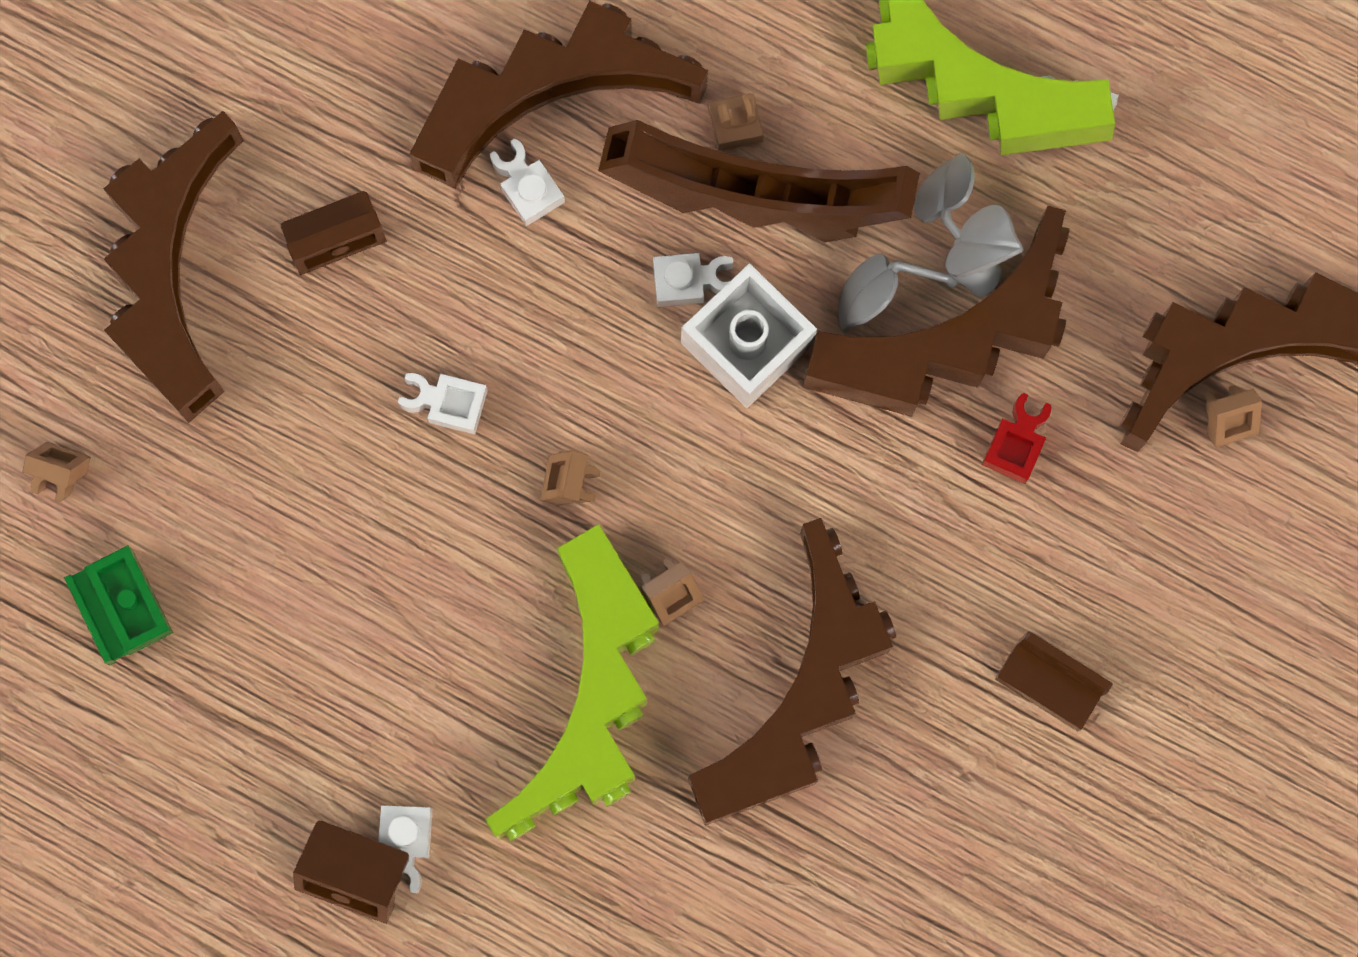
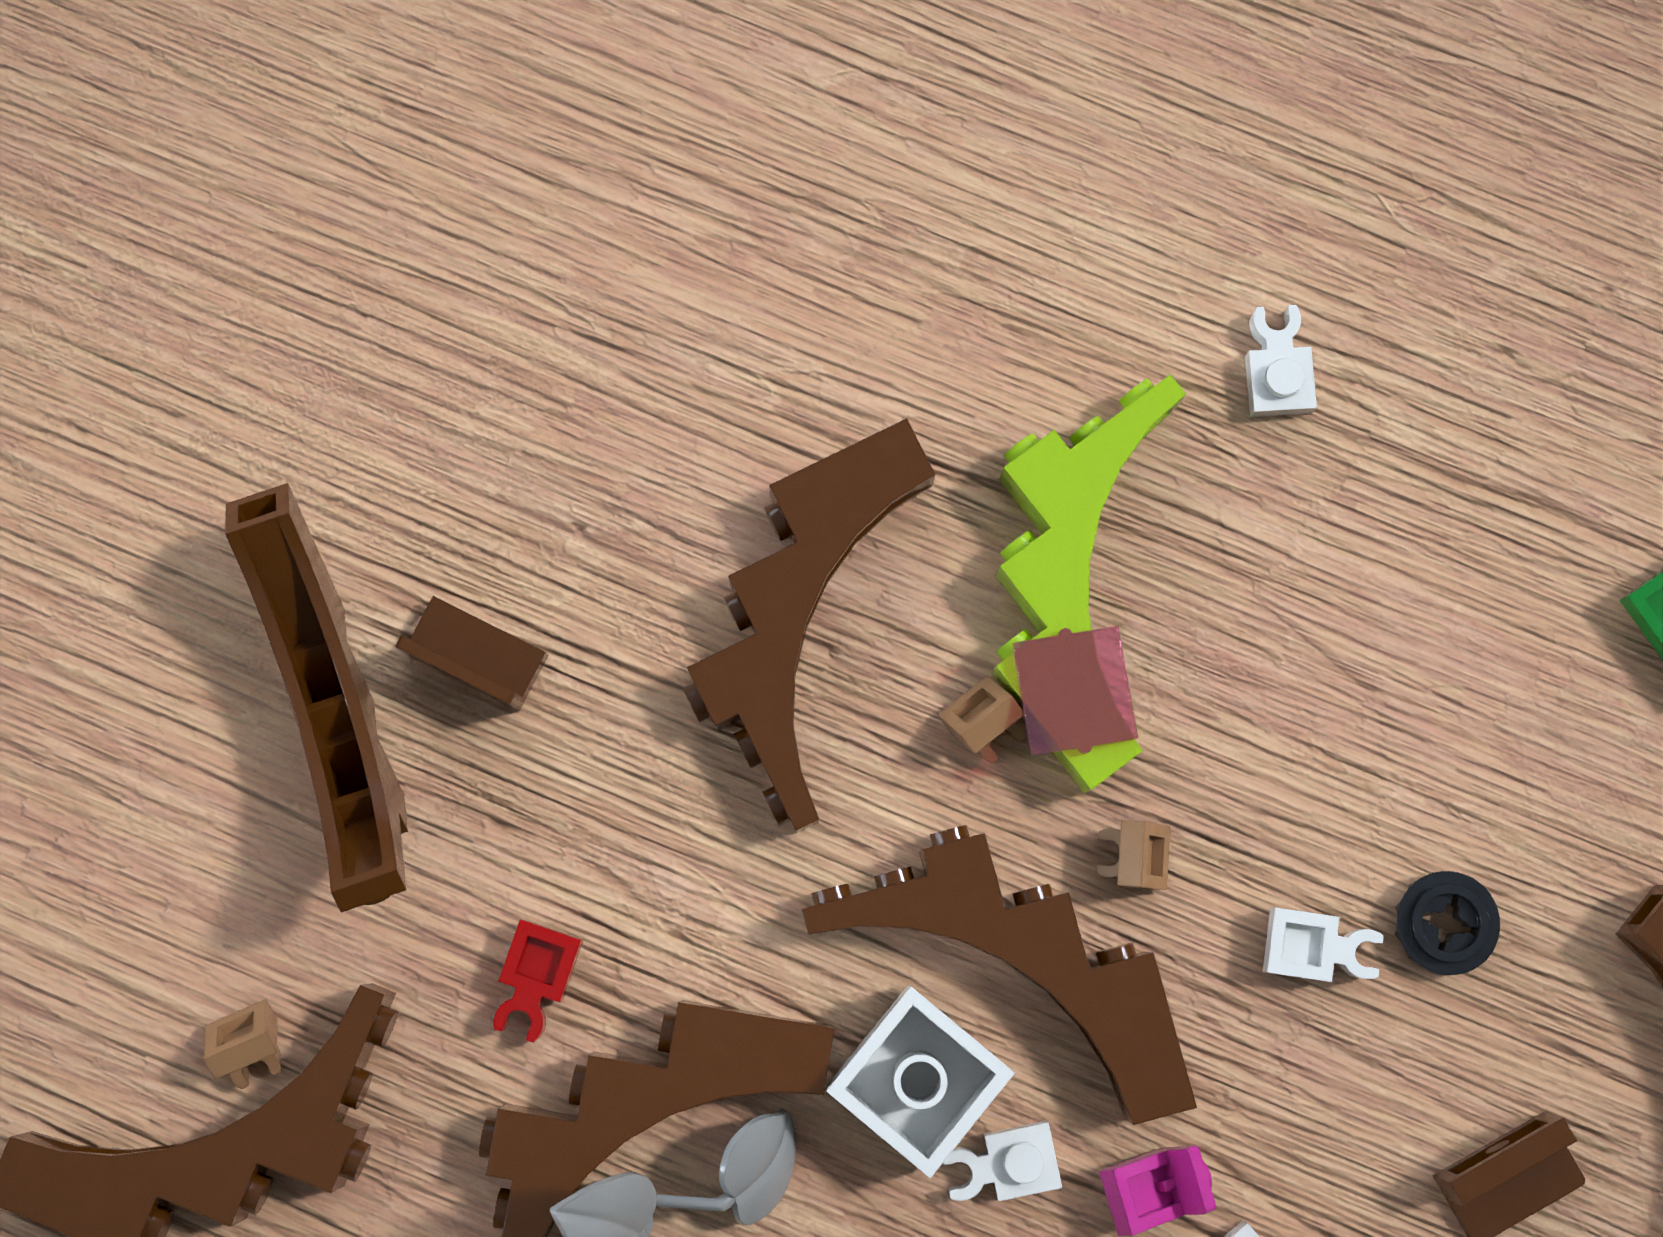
camera: 175 degrees right, 5 degrees up
(341, 389) = (1471, 906): none -> black gear
(350, 871) = (1342, 324): reddish brown panel -> none
(586, 248) = (1158, 1188): none -> dark pink bracket
(602, 597) = (1074, 691): none -> clear pink piece
(651, 428) = (1113, 1003): none -> reddish brown arch
(1162, 649) = (331, 702): none -> reddish brown arch

